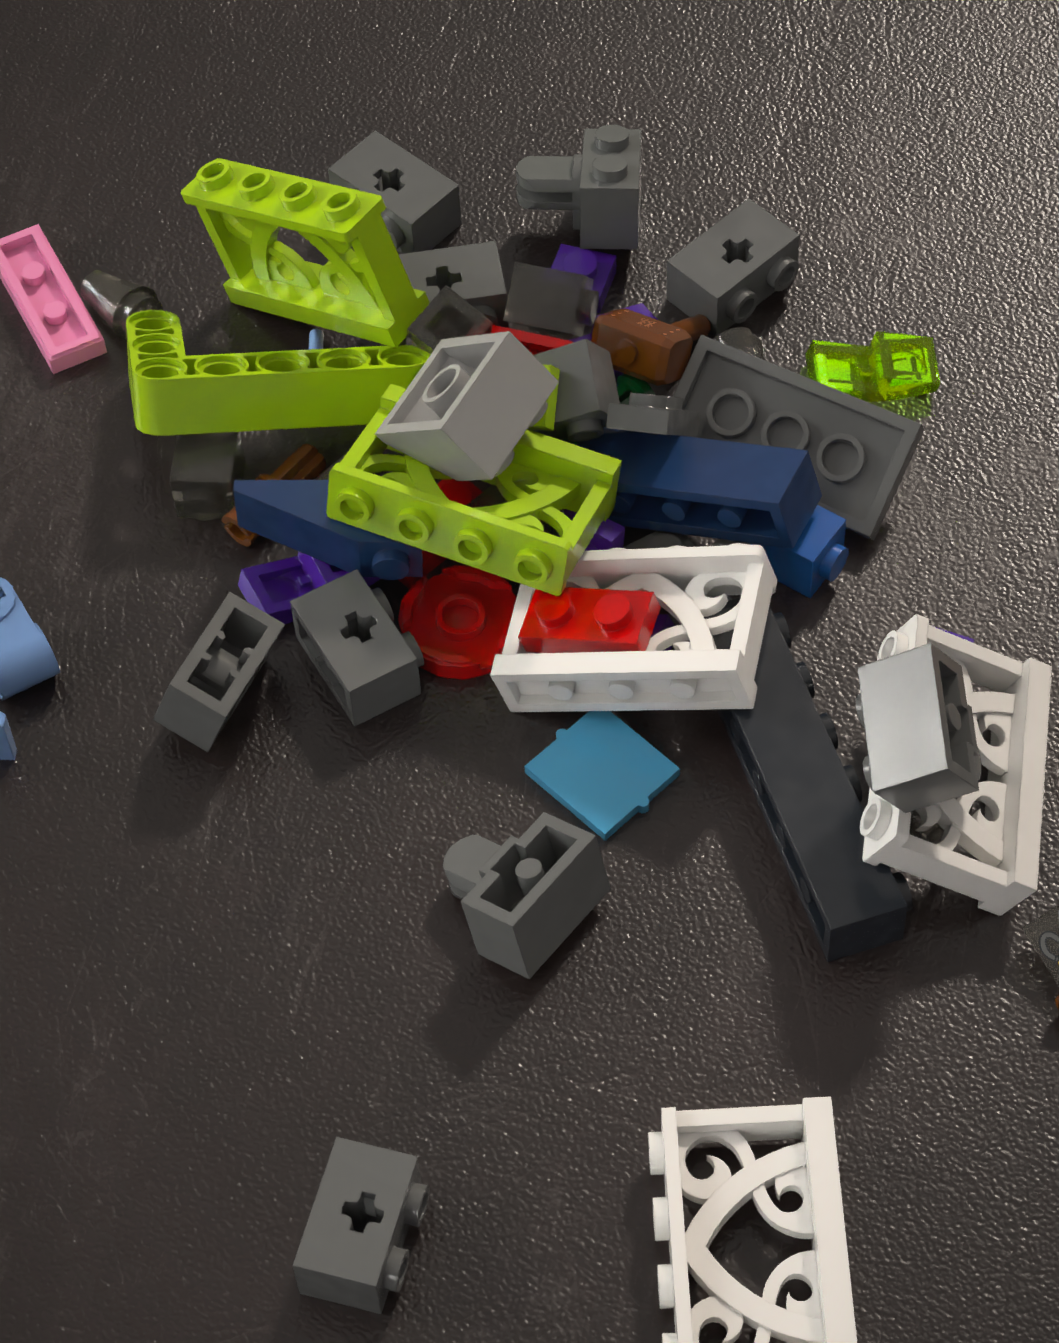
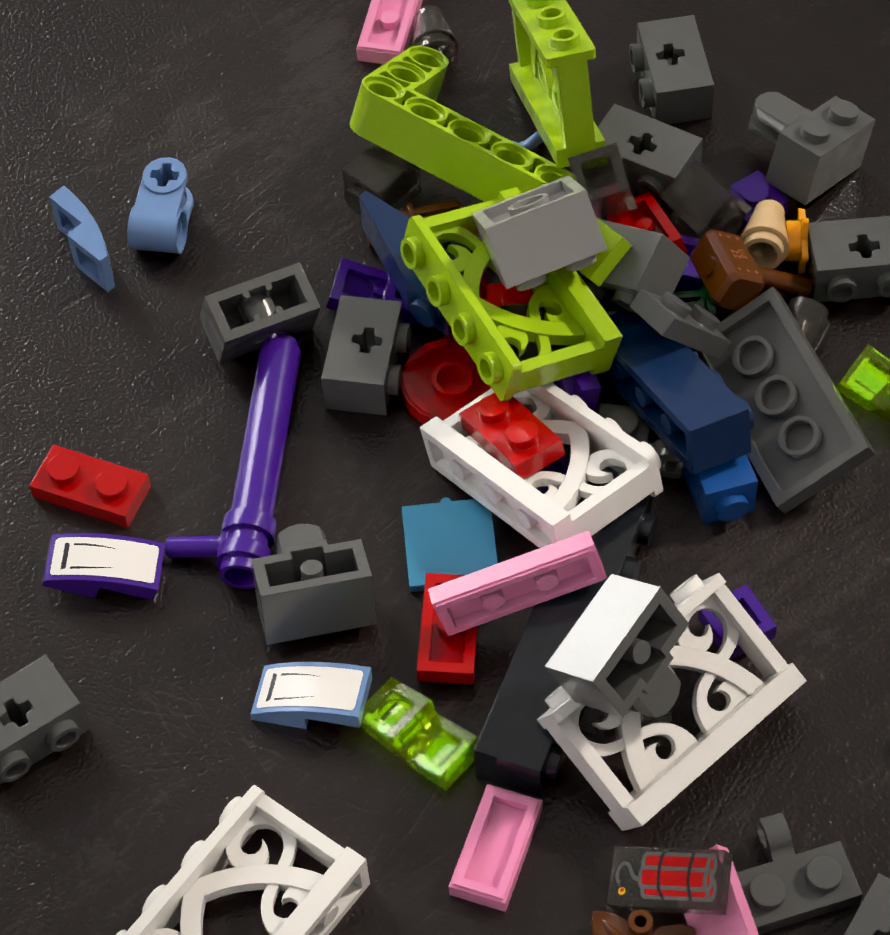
camera: 40 degrees right, 0 degrees up
(193, 956) = (90, 486): none -> red plate
(283, 1018) = (106, 561): none -> slope
(400, 880) = (250, 525): none -> dark purple cylinder
(614, 990) = (313, 691): none -> slope
(636, 291) = (767, 234): none -> tan cone
(662, 286) = (798, 240): none -> light orange plate
(685, 844) = (439, 655): none -> red plate
(736, 750) = (517, 583): none -> bright pink tile
(741, 962) = (418, 735): none -> clear neon green slope
(912, 1009) = (496, 847): none -> bright pink tile

